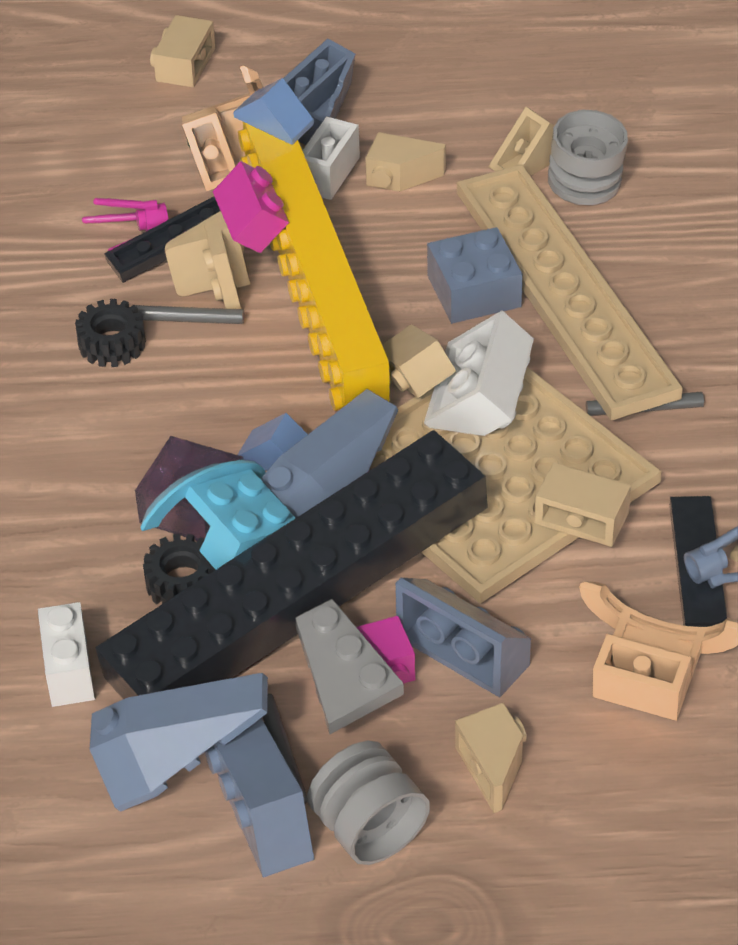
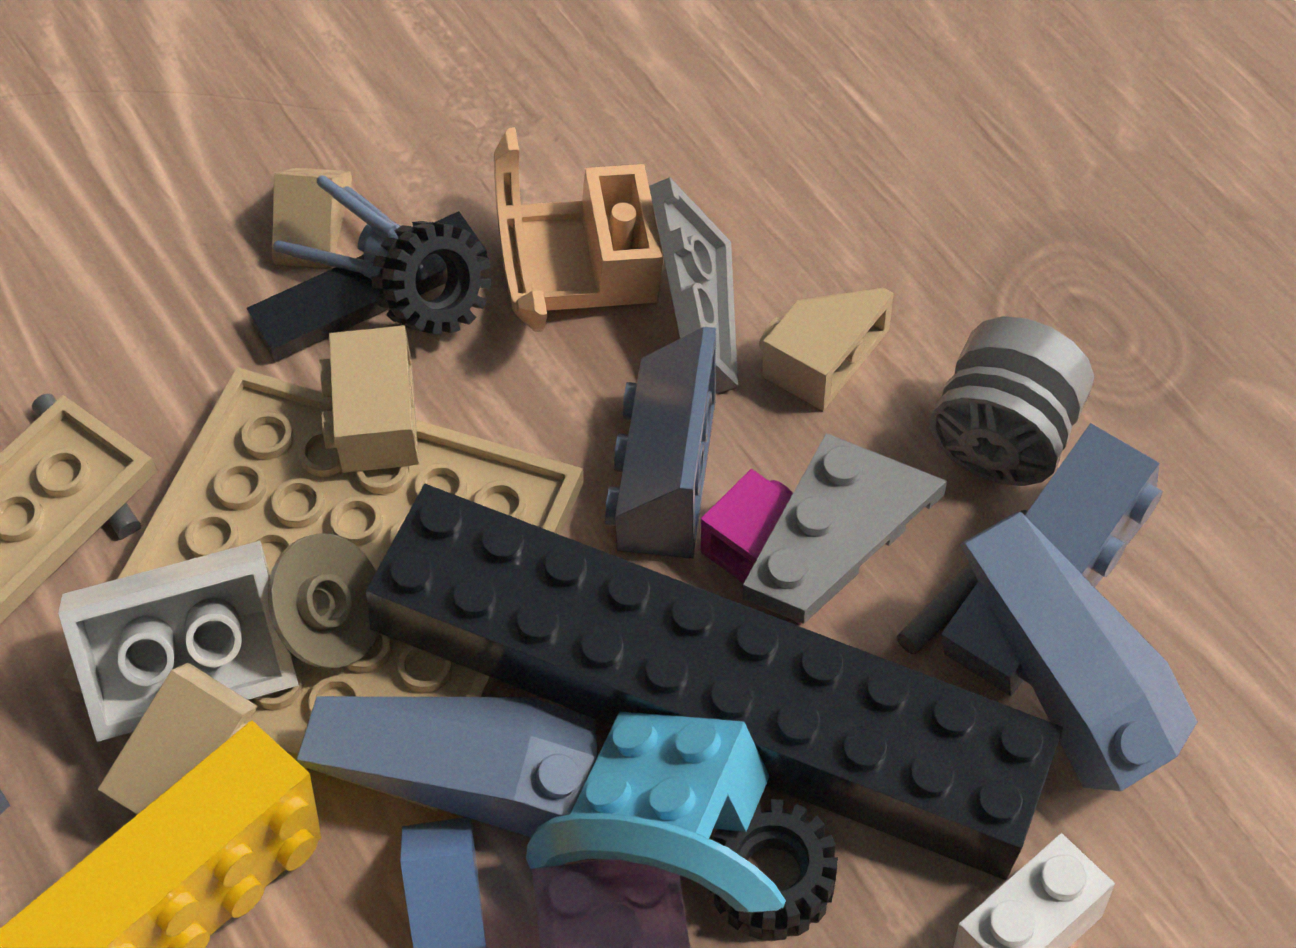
camera: 120 degrees left, 10 degrees up
(451, 415) = (337, 578): none -> dark tan dish
(576, 701) = (698, 274): none -> light grey wing
(678, 574) = (462, 279): none -> black tyre

